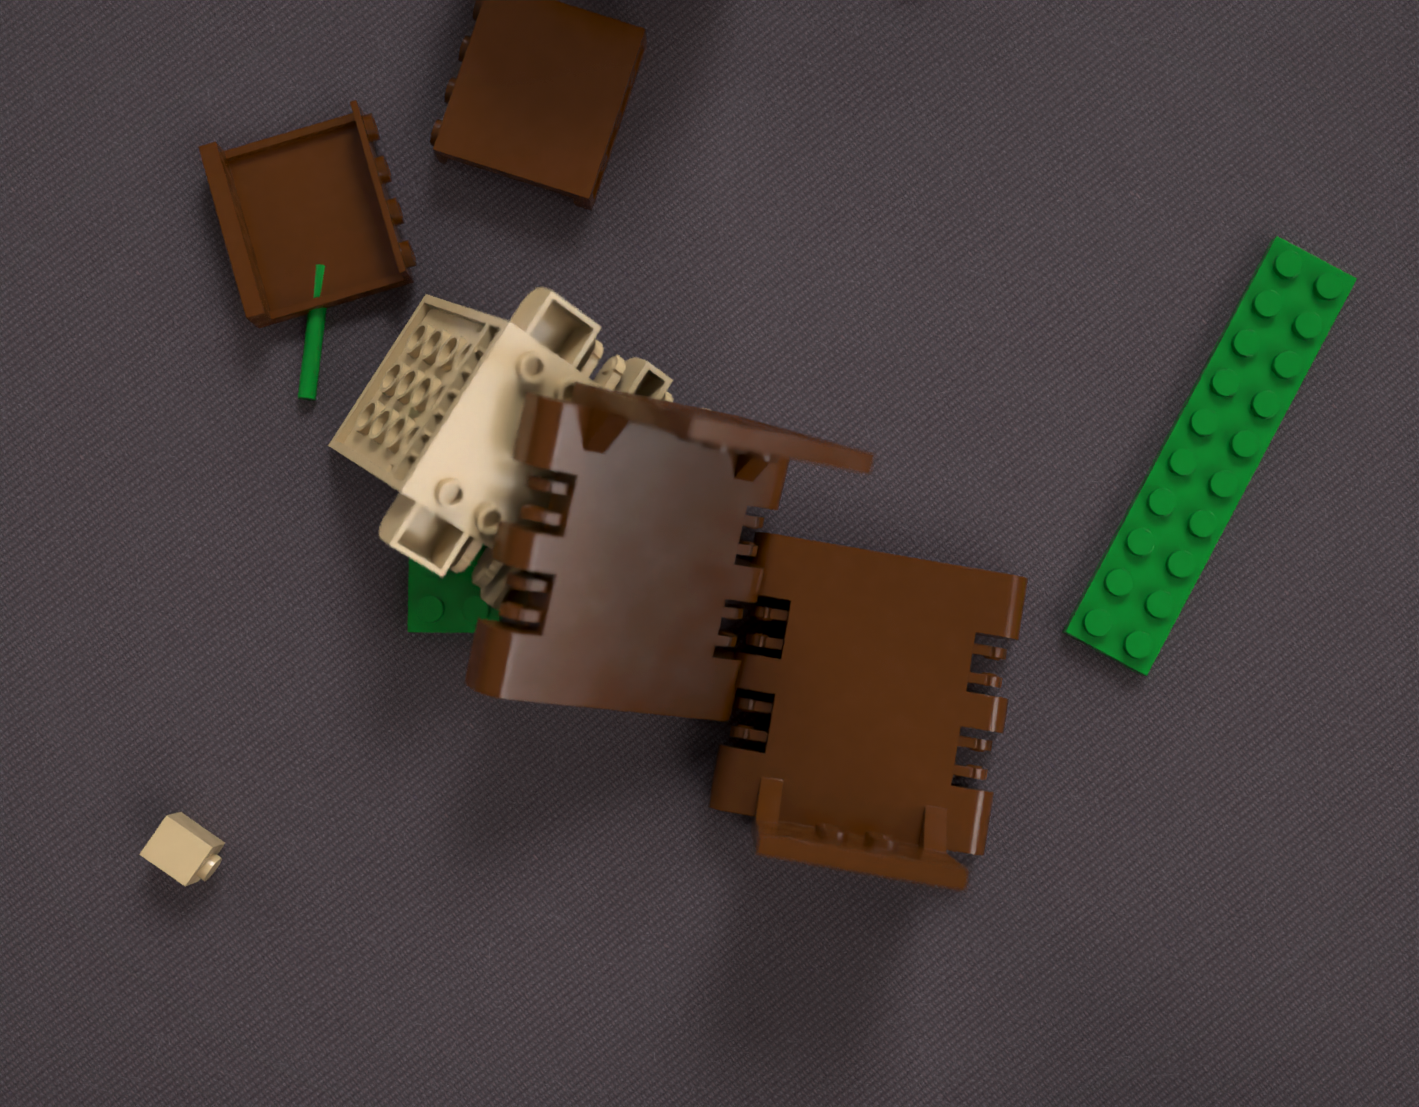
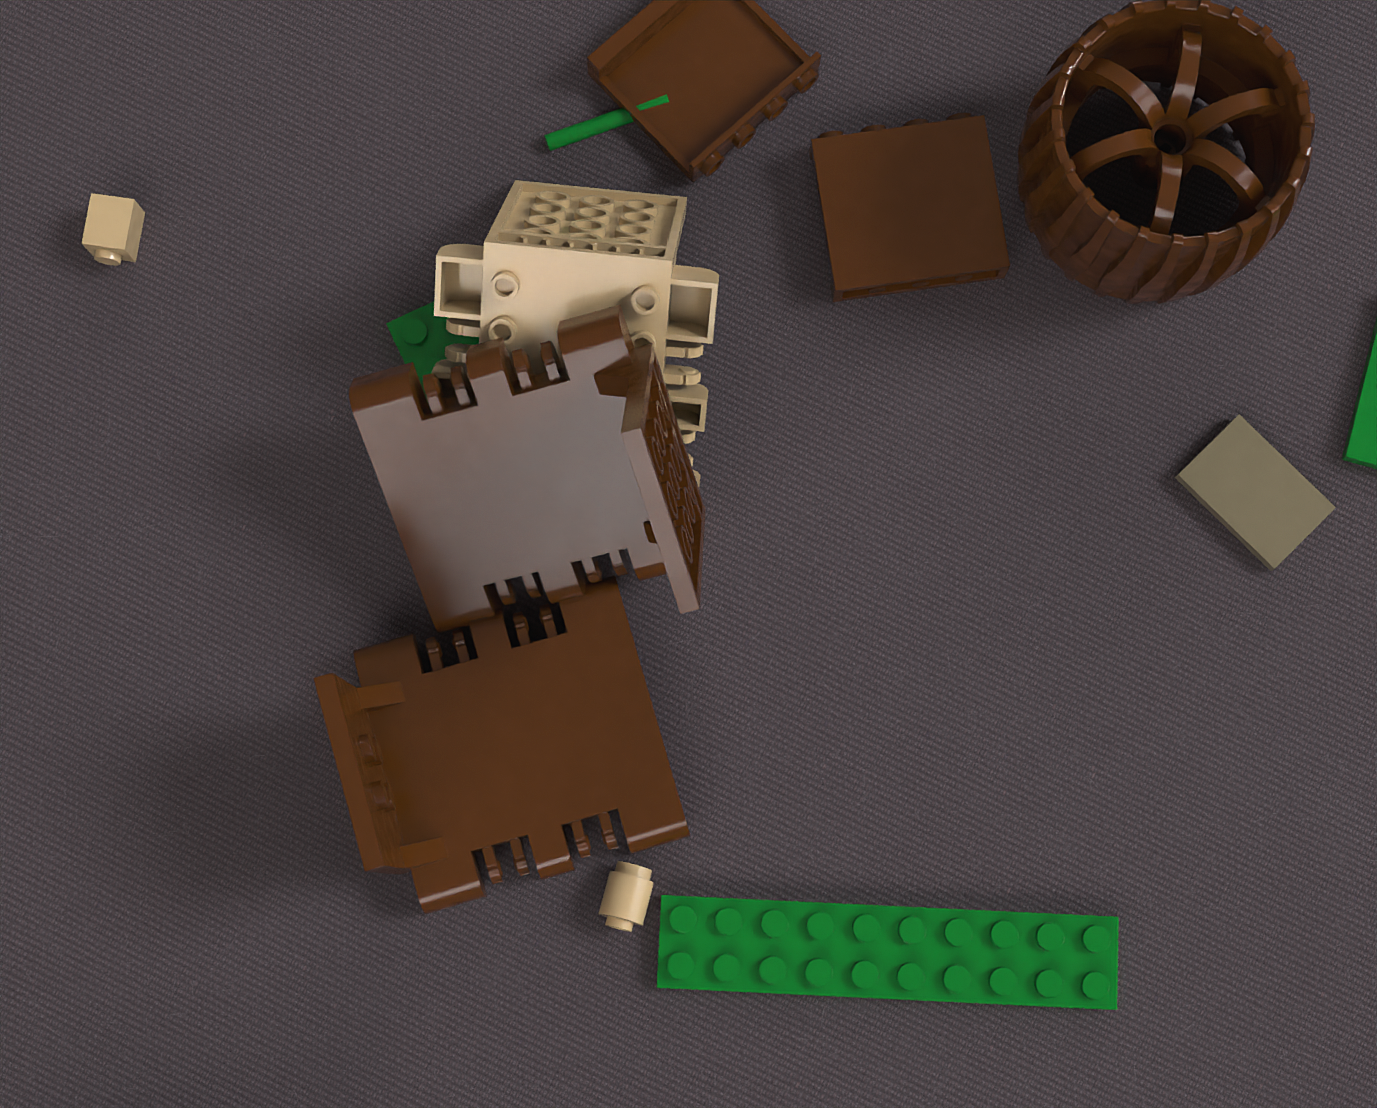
camera: 65 degrees right, 5 degrees down
(1052, 663) = (626, 896): none -> tan brick

